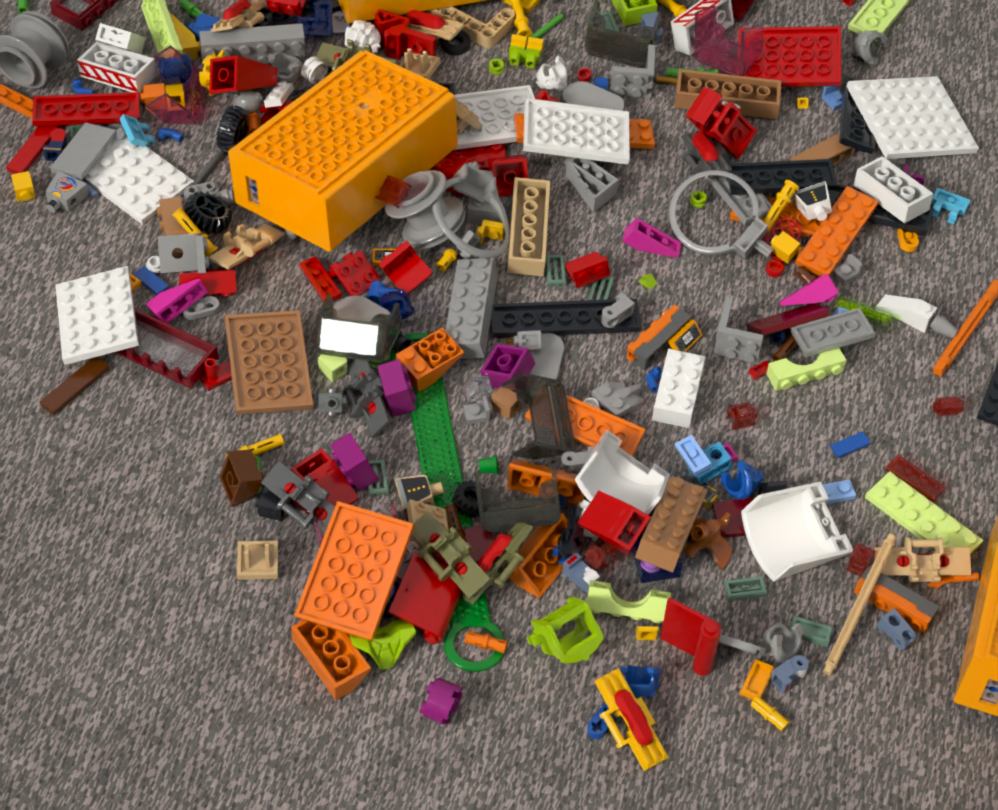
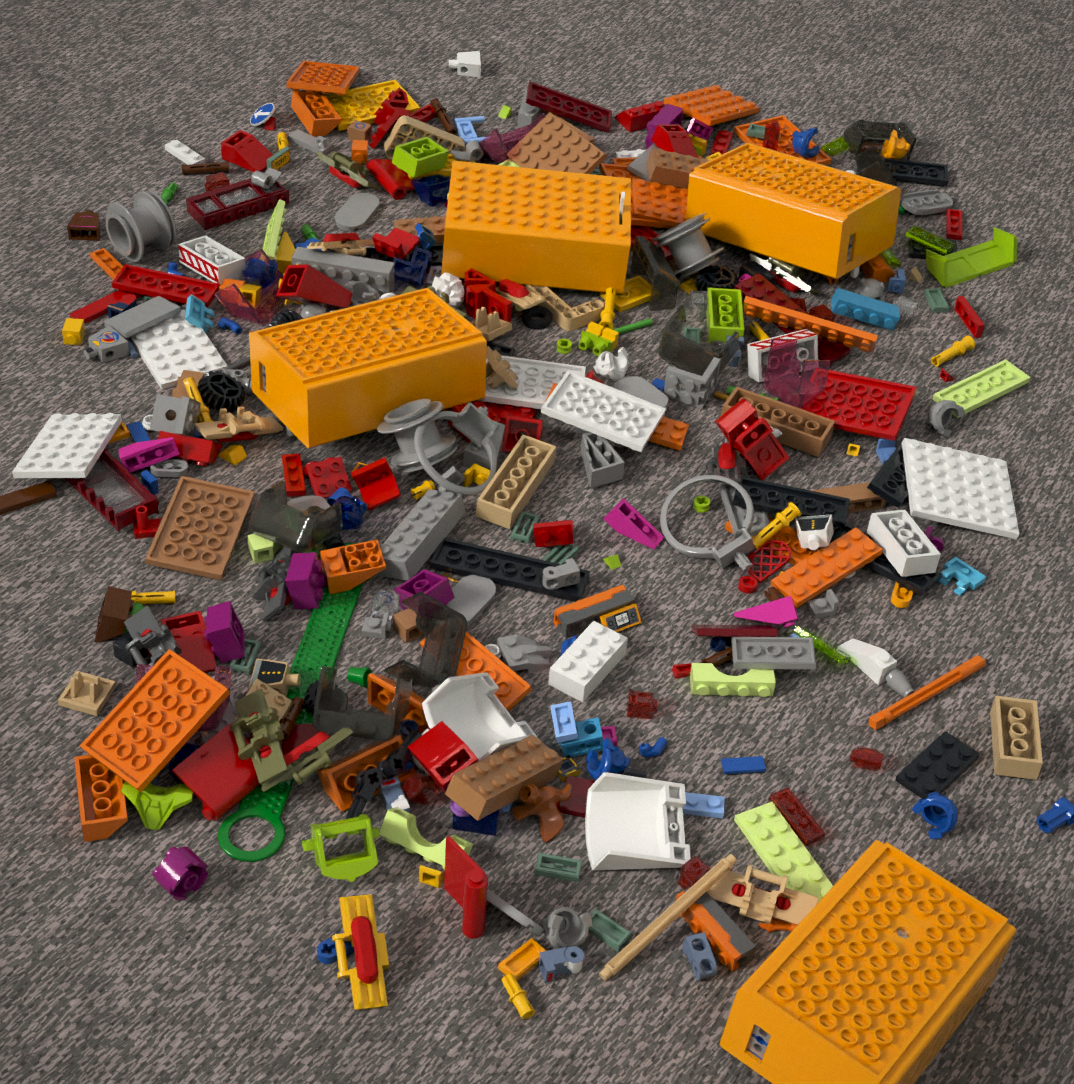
camera: 20 degrees right, 10 degrees down
(120, 38) = (228, 238): white window -> none
(192, 328) = (150, 482): none -> blue tile
(250, 274) = (233, 454): none -> yellow slope
(331, 394) = (239, 576): flat silver brick -> none
(393, 191) = (389, 407): clear red plate -> none
(485, 641) = (261, 833): orange pin -> none
(528, 340) = (460, 576): light grey bracket -> none
(554, 575) = (364, 791): none -> black connector
(587, 72) = (645, 369): red hinge -> none
(642, 680) = (396, 919): blue helmet -> none
(730, 339) = (663, 628): light grey bracket -> none
(771, 455) = (653, 751): none -> blue arm
(785, 246) = (765, 565): yellow brick -> none

